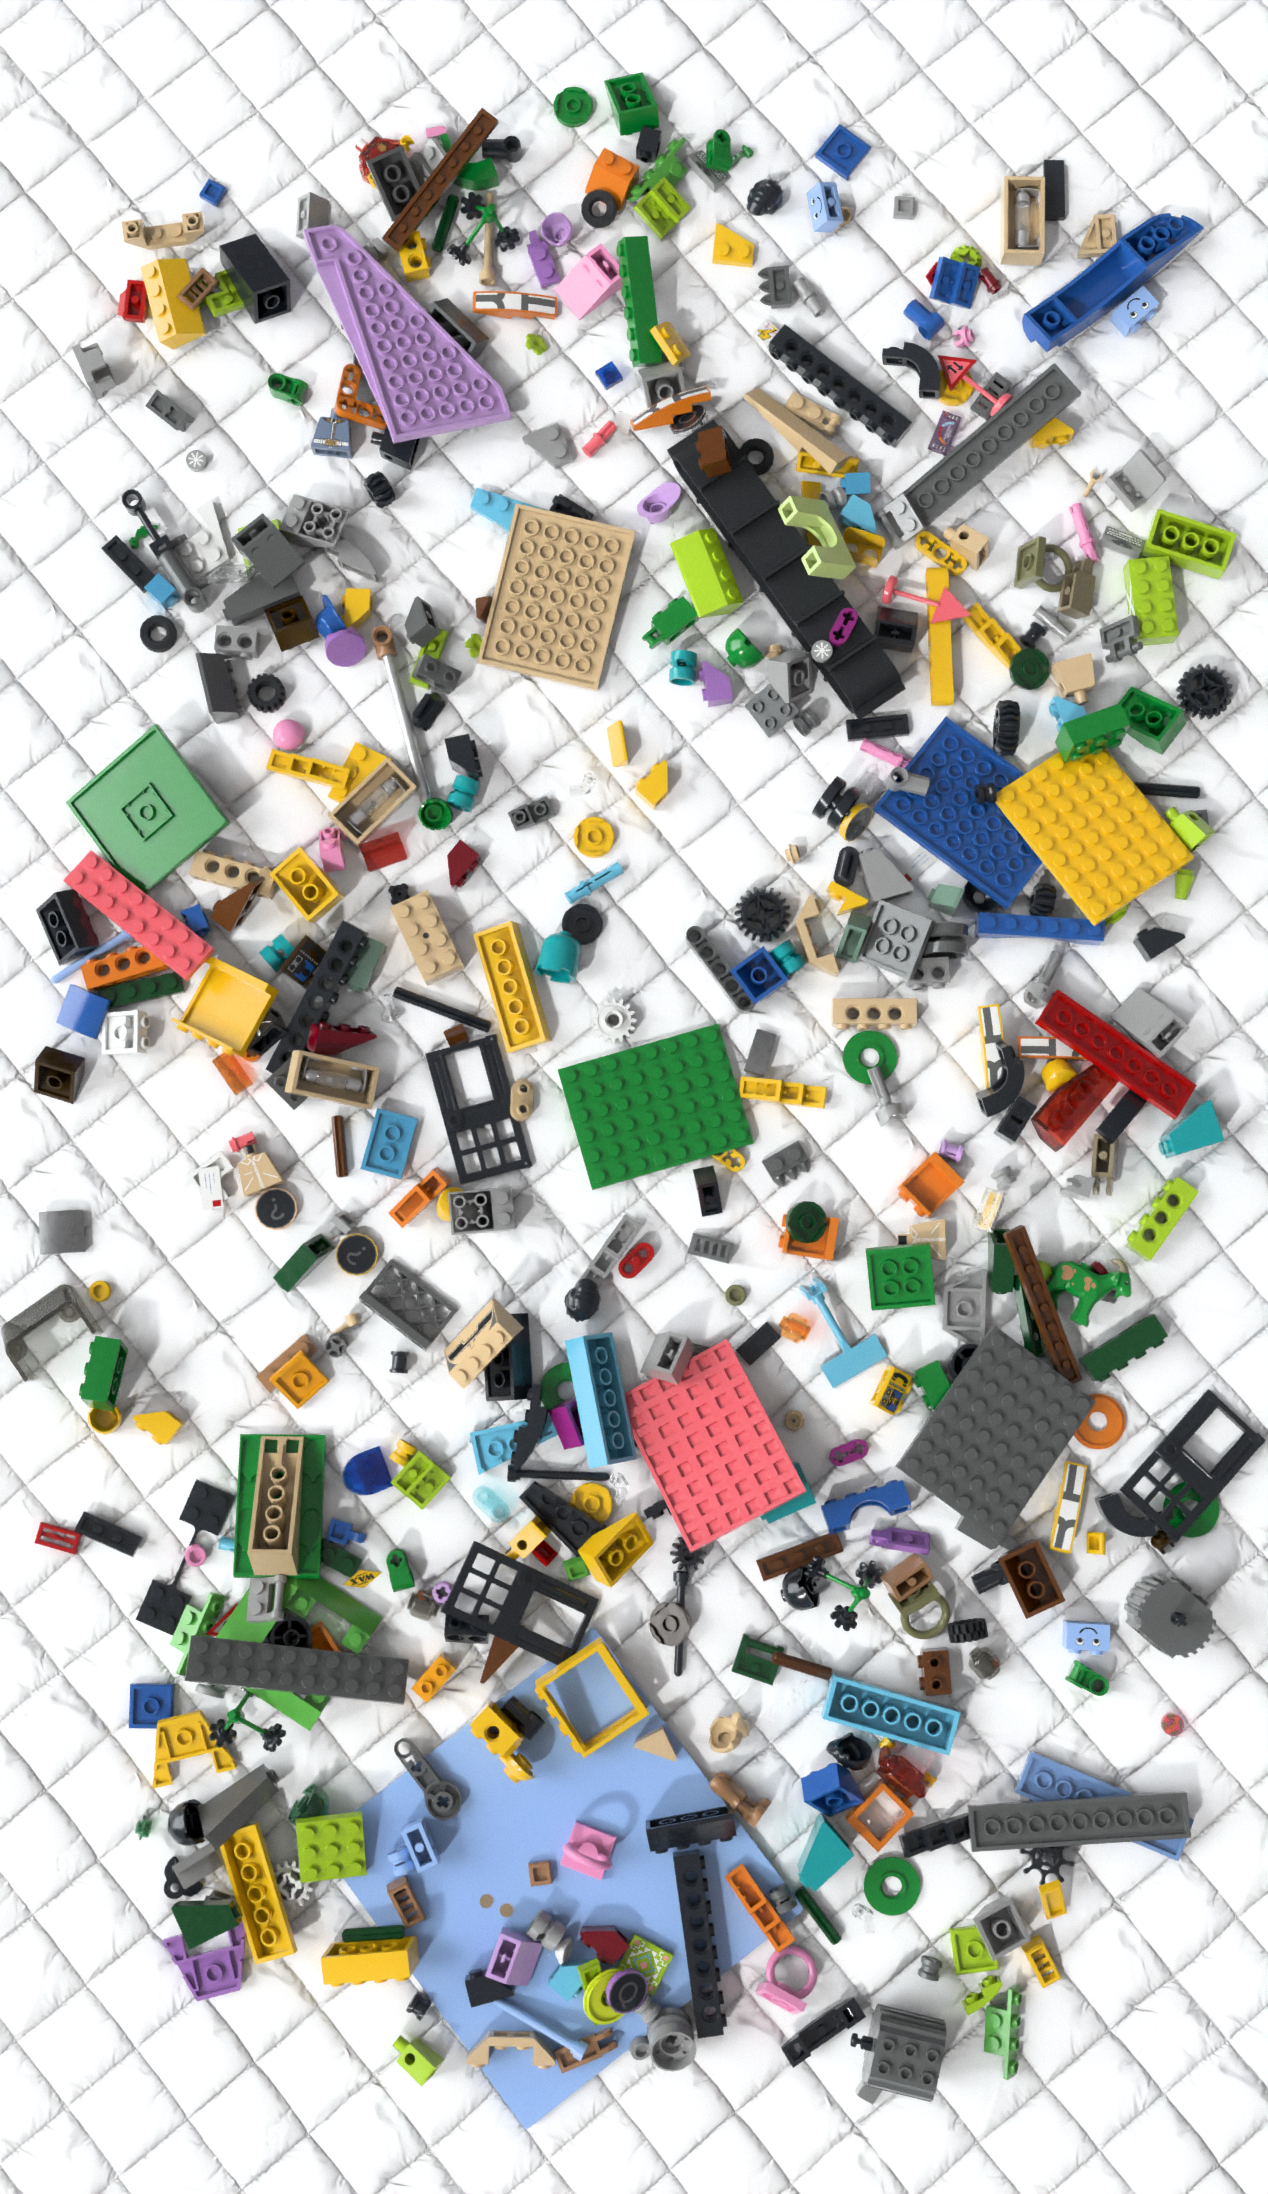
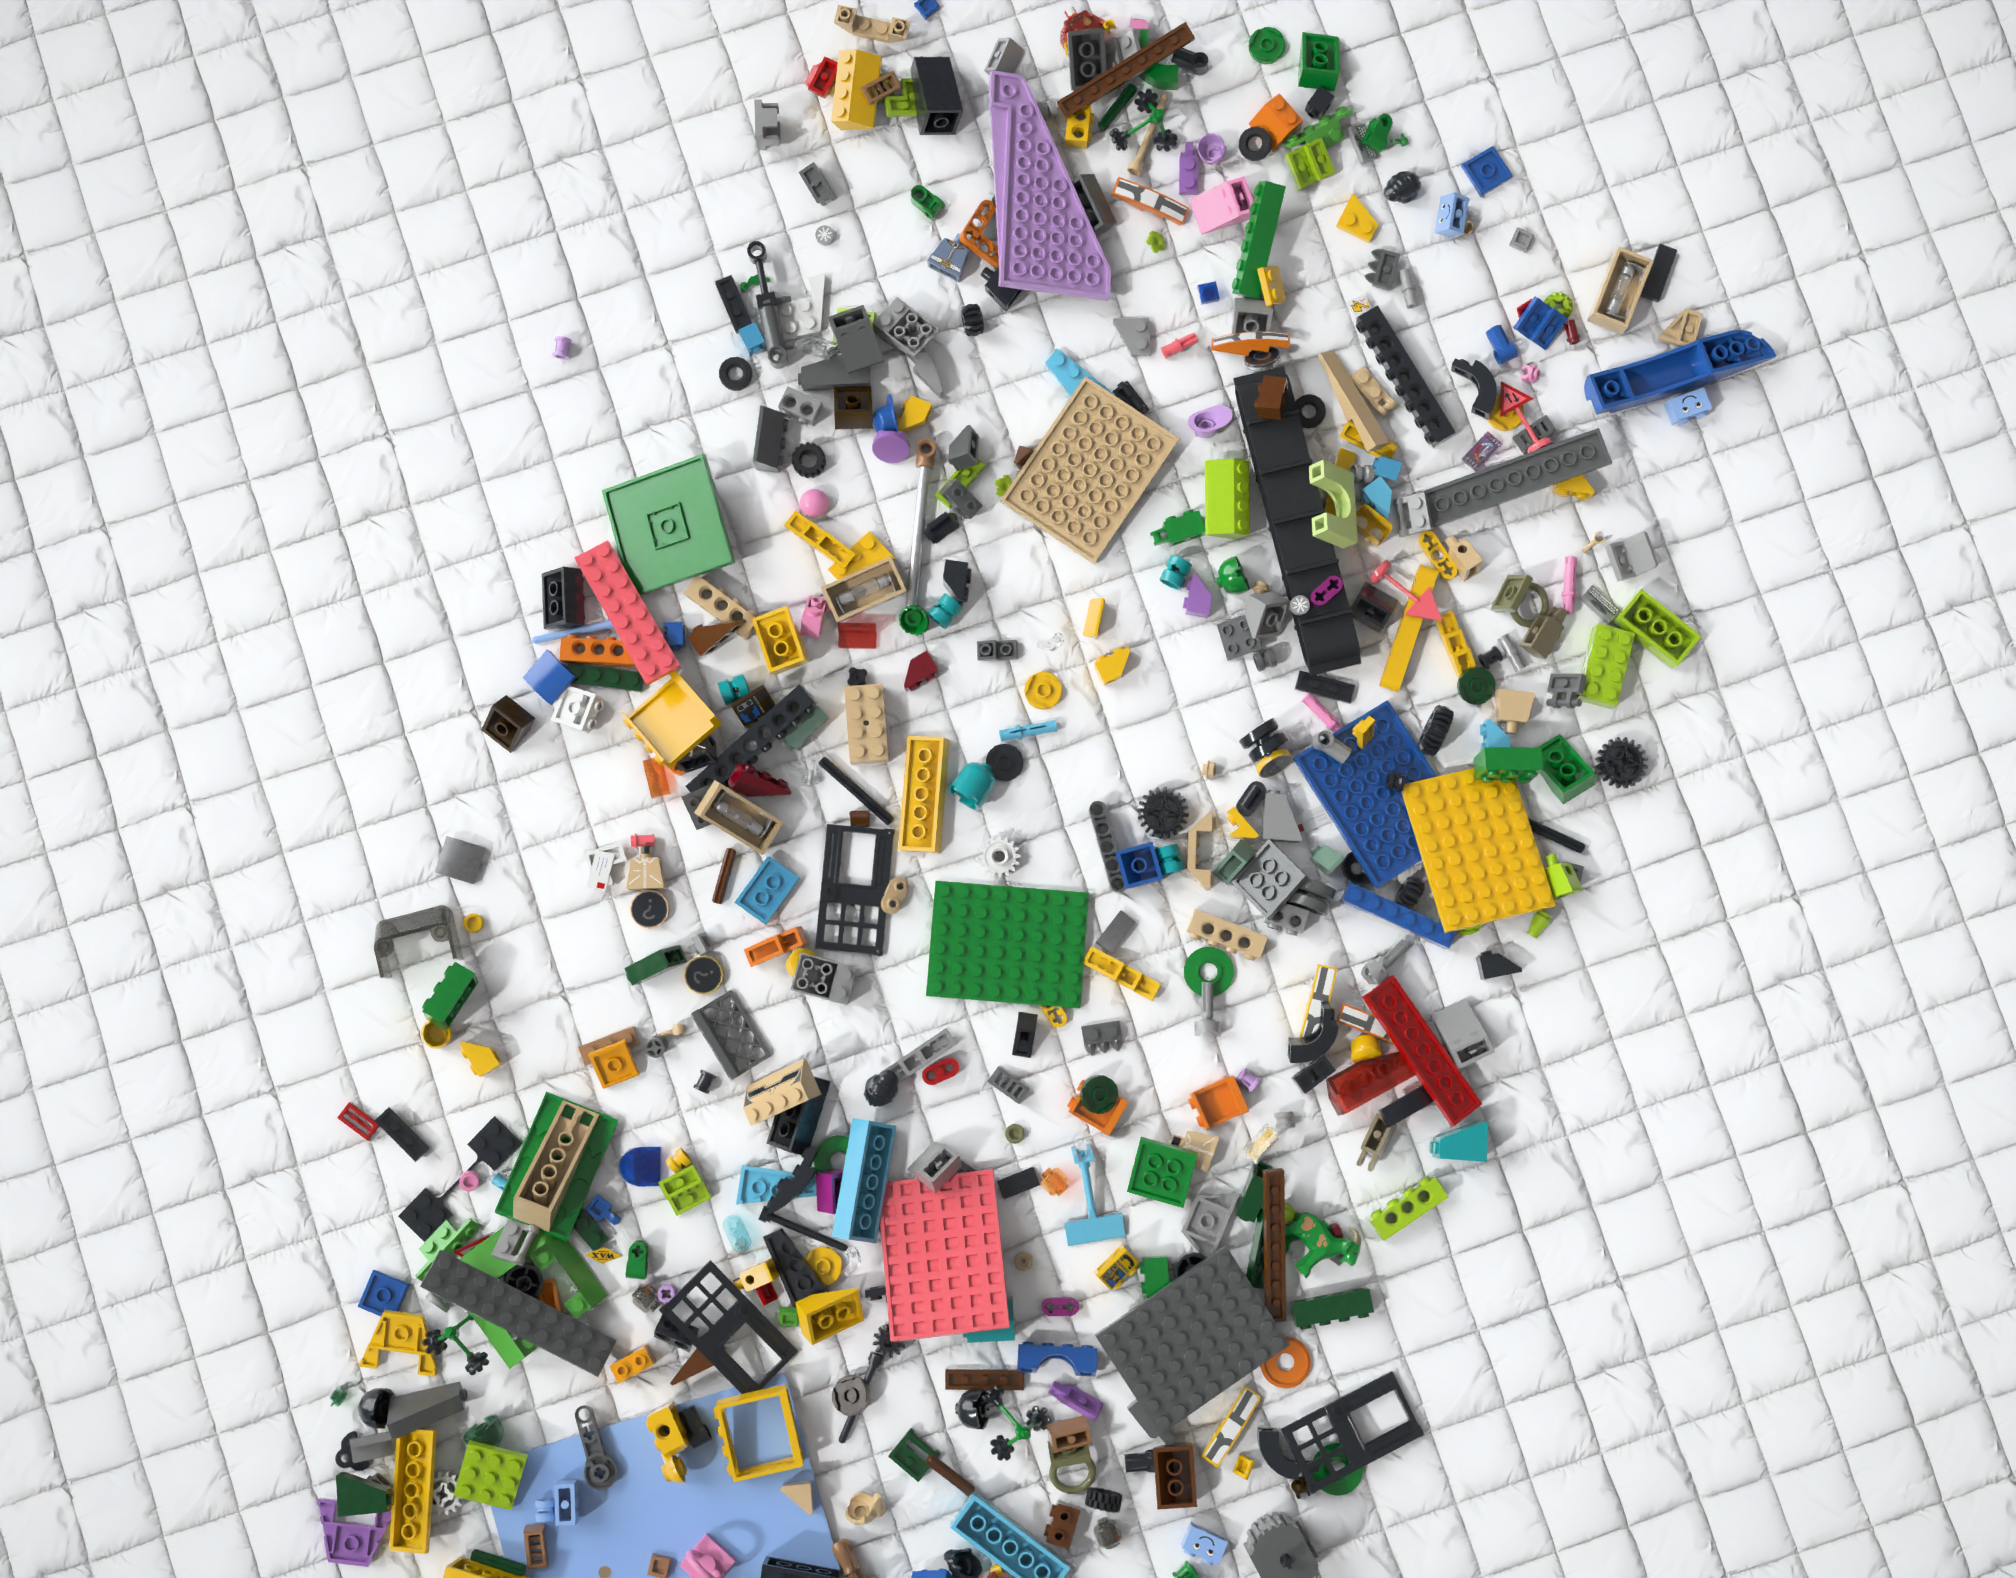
camera: 15 degrees right, 0 degrees up
(935, 754) = (1364, 731): none -> yellow plate
(1080, 1188) = (1347, 1155): light grey hinge -> none

